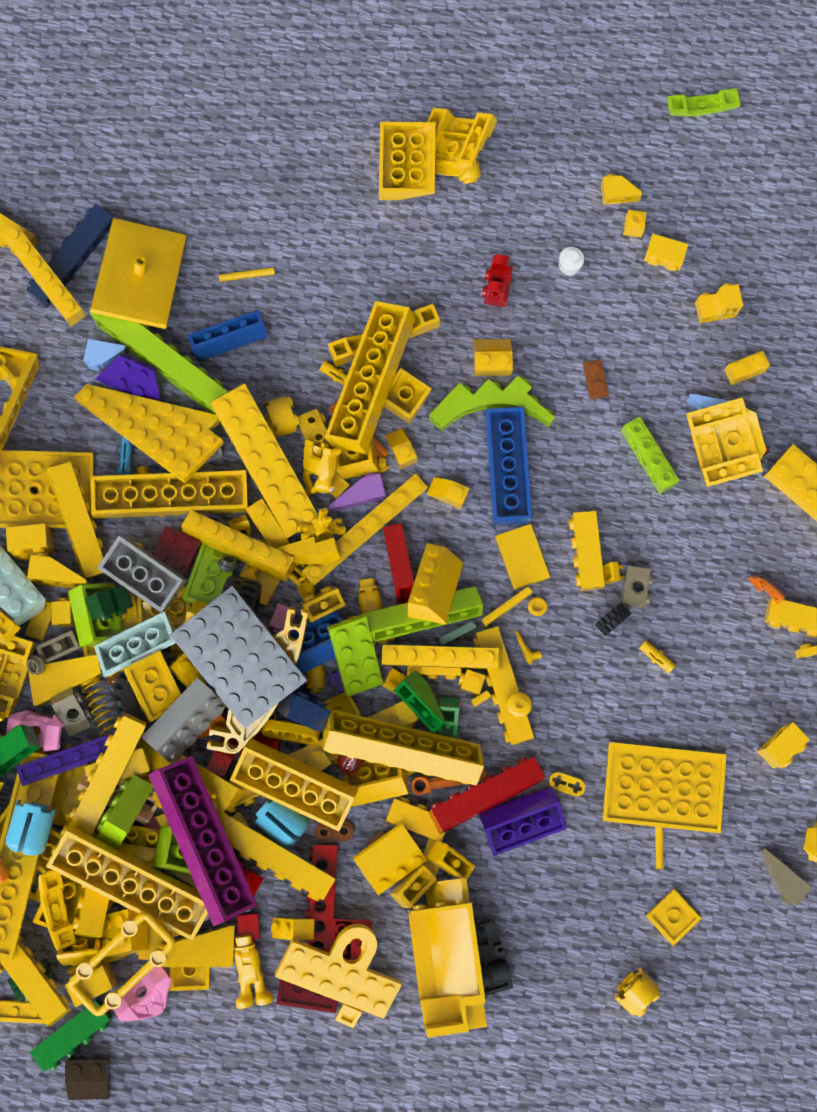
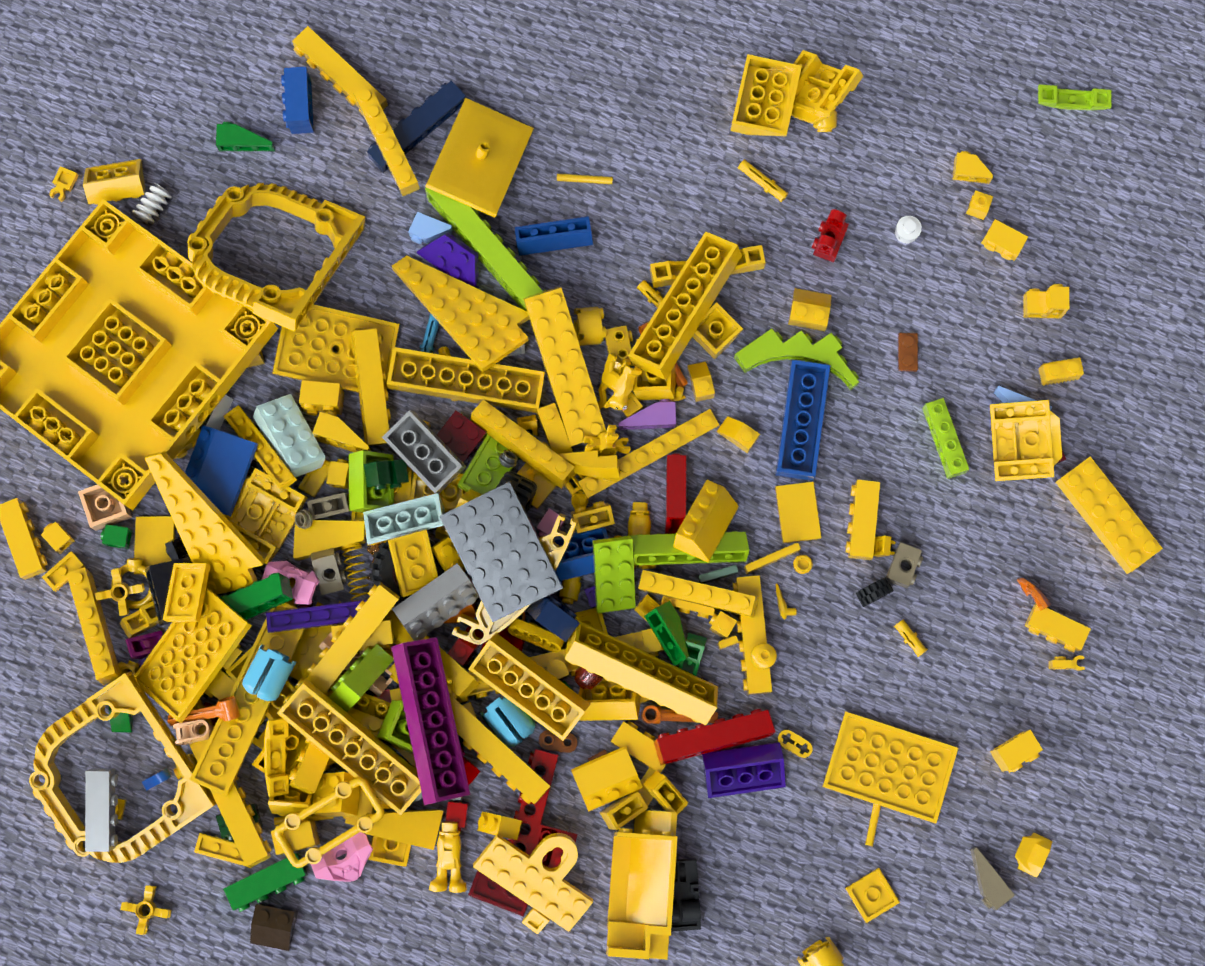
camera: 15 degrees right, 0 degrees up
(420, 241) = (769, 185): none -> yellow pin

